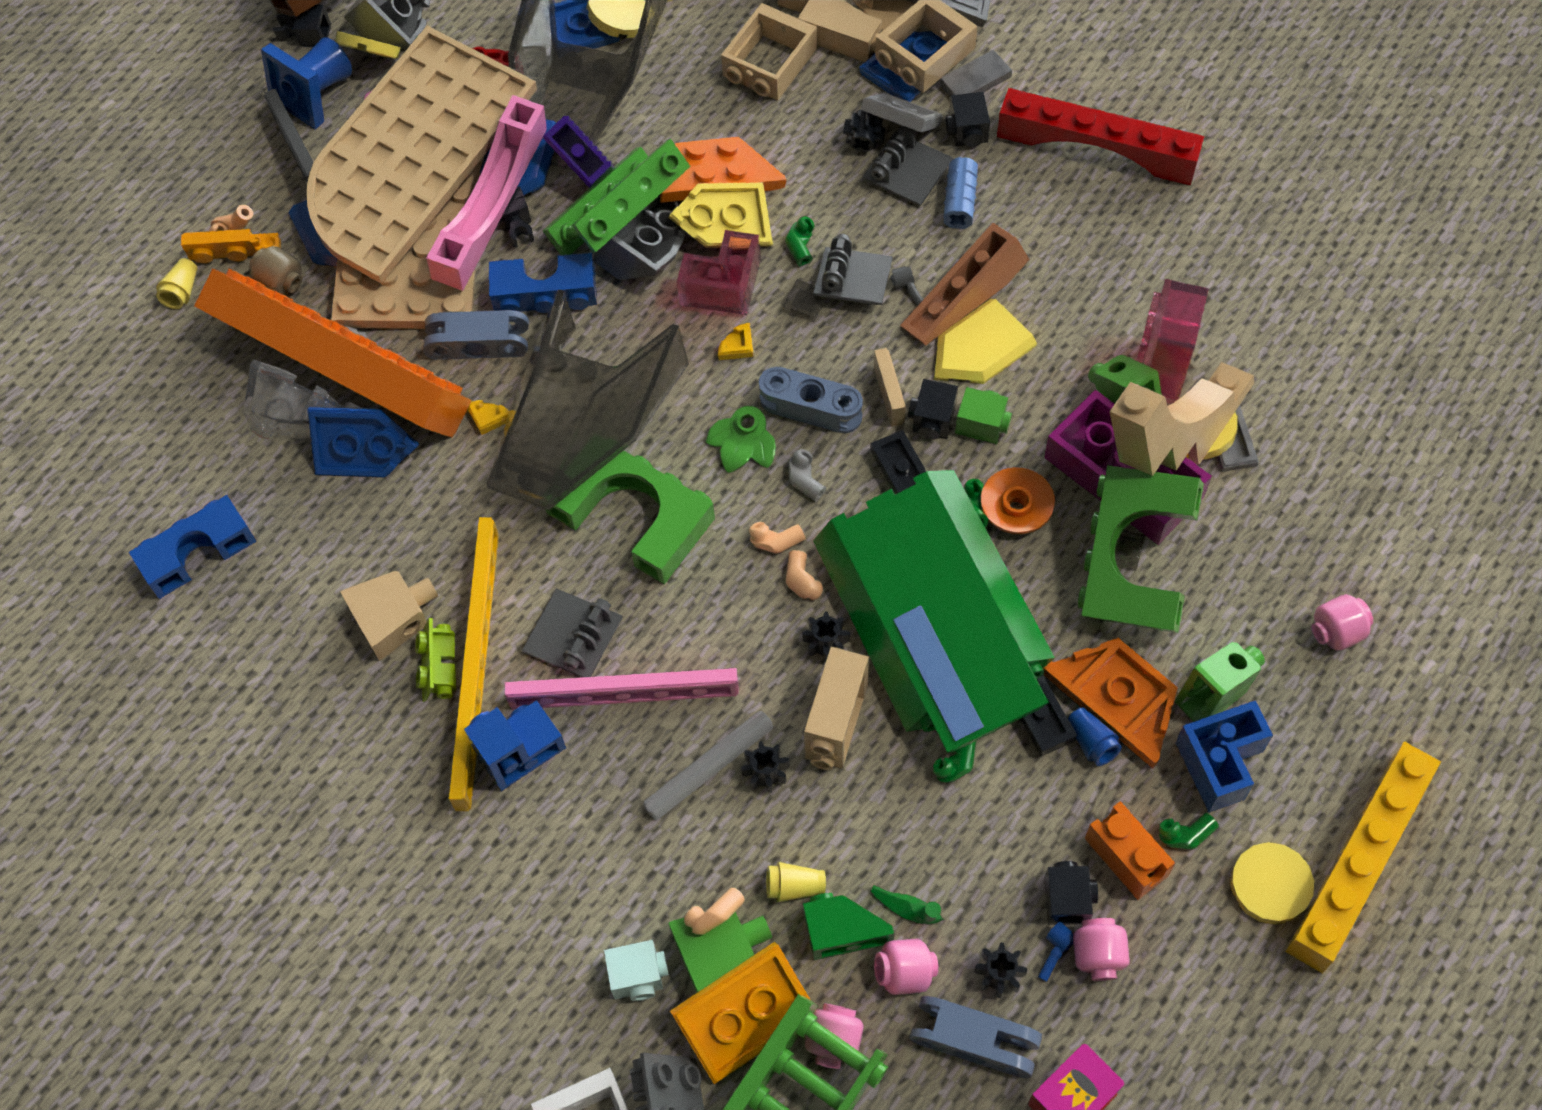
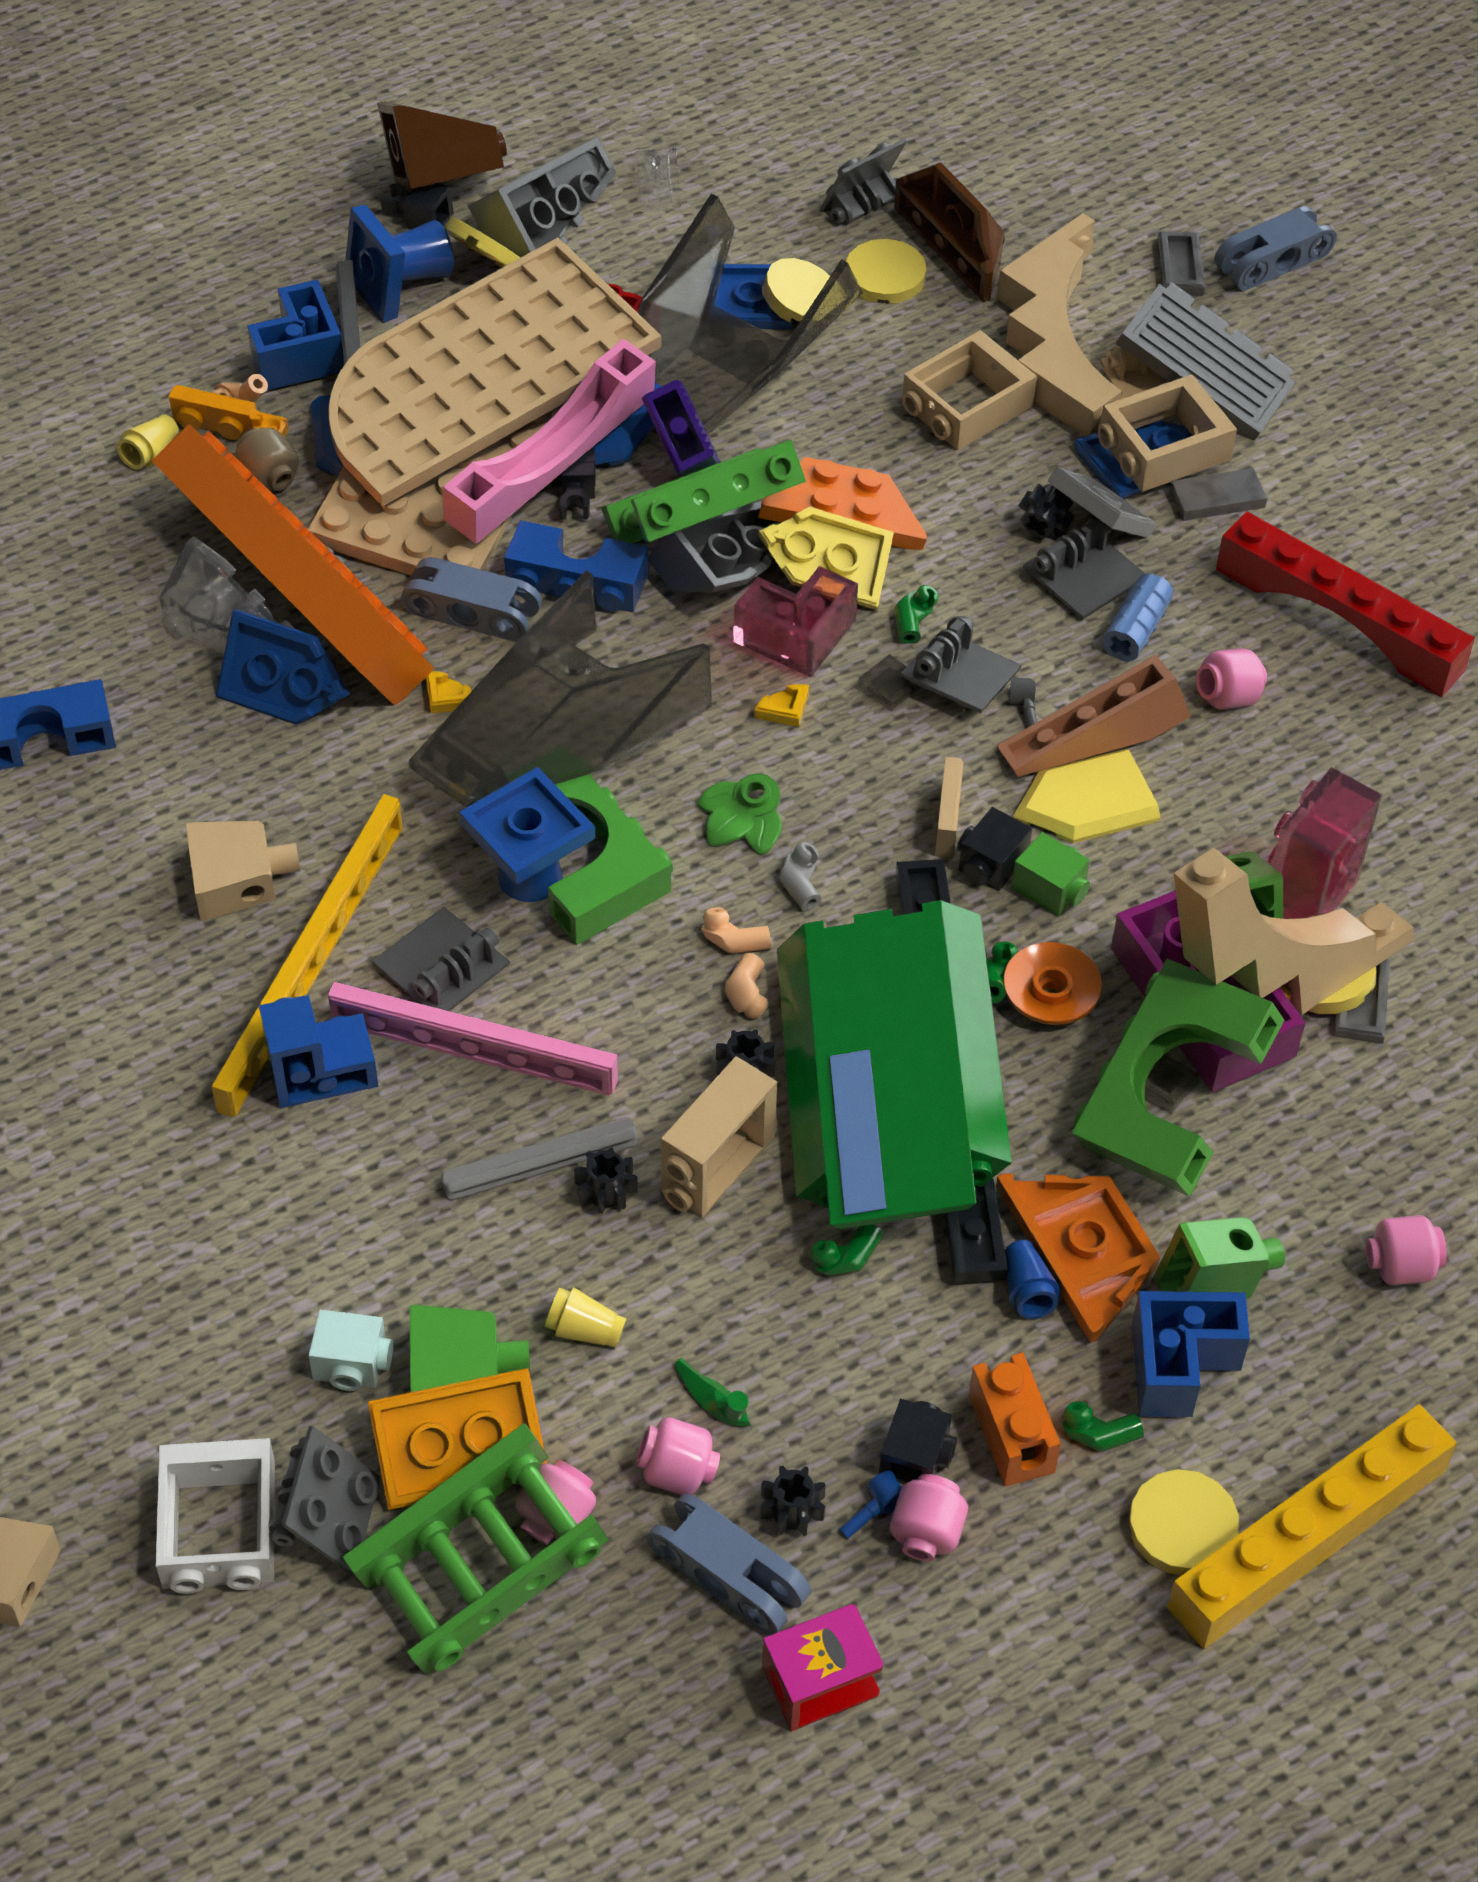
camera: 15 degrees right, 10 degrees down
(264, 164) = (301, 342): none -> blue brick
(433, 646) = (257, 954): lime hinge -> none
(601, 514) = (527, 833): none -> blue plant
(718, 913) = (453, 1313): light nougat arm -> none
(785, 393) = (844, 791): sand blue piece -> none
(842, 926) = (618, 1386): green slope -> none
(968, 119) = (1184, 536): black brick -> none
(1045, 220) = (1231, 678): none -> bright pink head

